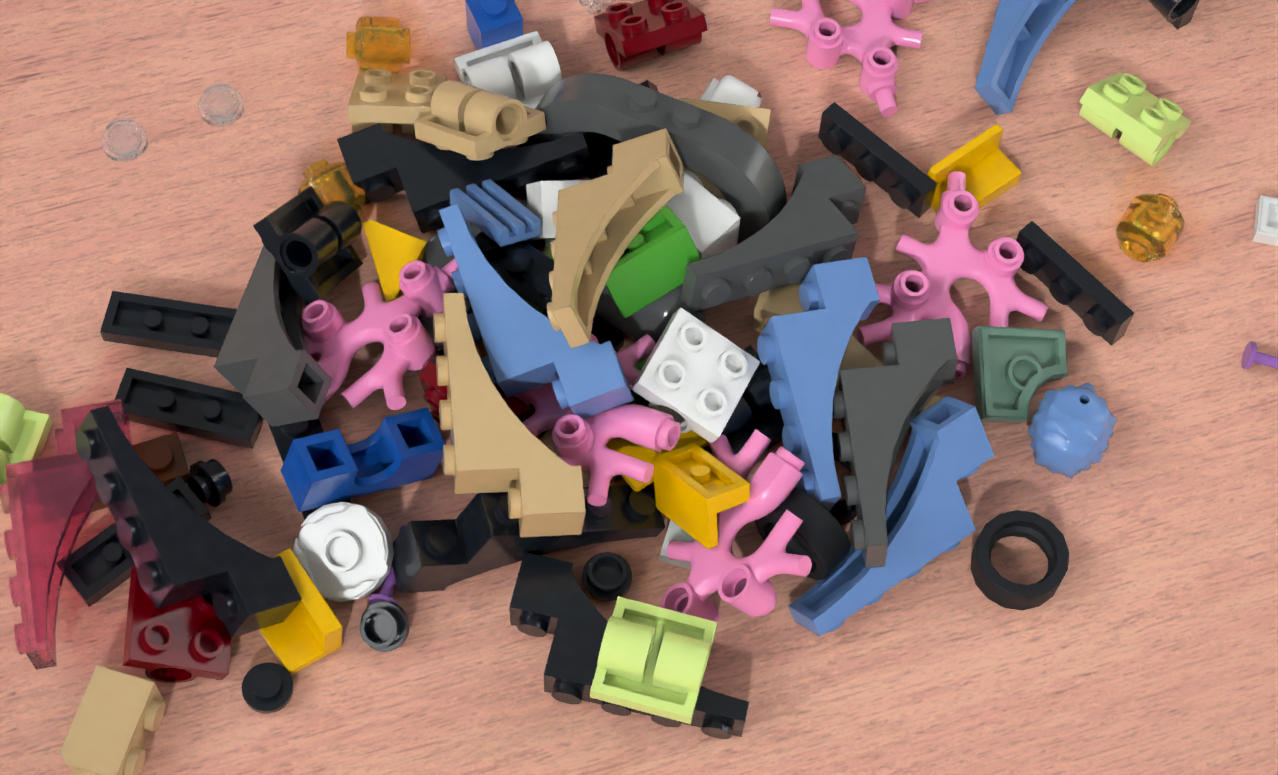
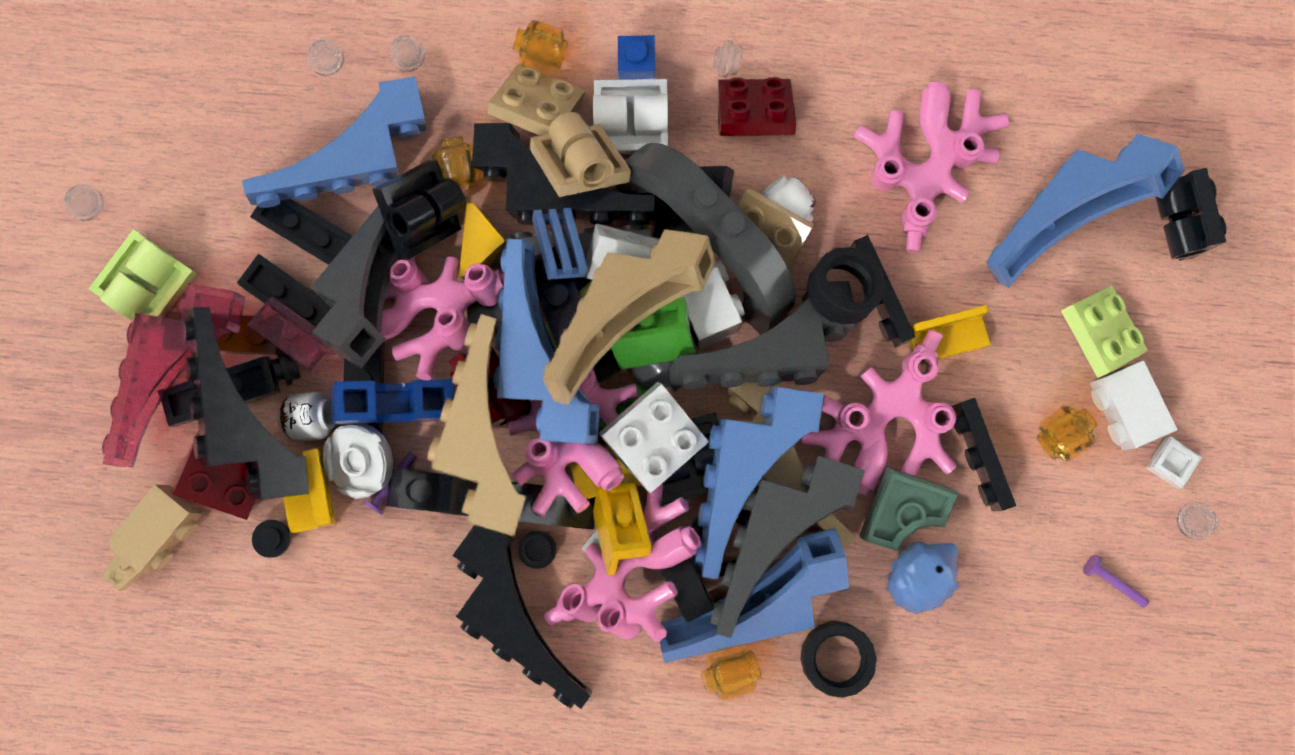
camera: 30 degrees right, 20 degrees up
(204, 226) = (354, 158): none -> medium blue arch
(208, 433) = (289, 333): none -> clear pink hinge
(261, 522) = (306, 416): none -> white head
(384, 626) = (365, 526): plate -> none
(653, 659) = (532, 643): yellowish green plate -> none
(831, 171) = (860, 266): none -> black tyre
(903, 620) = (731, 673): none -> clear yellow head
(1204, 177) = (1132, 406): none -> white brick

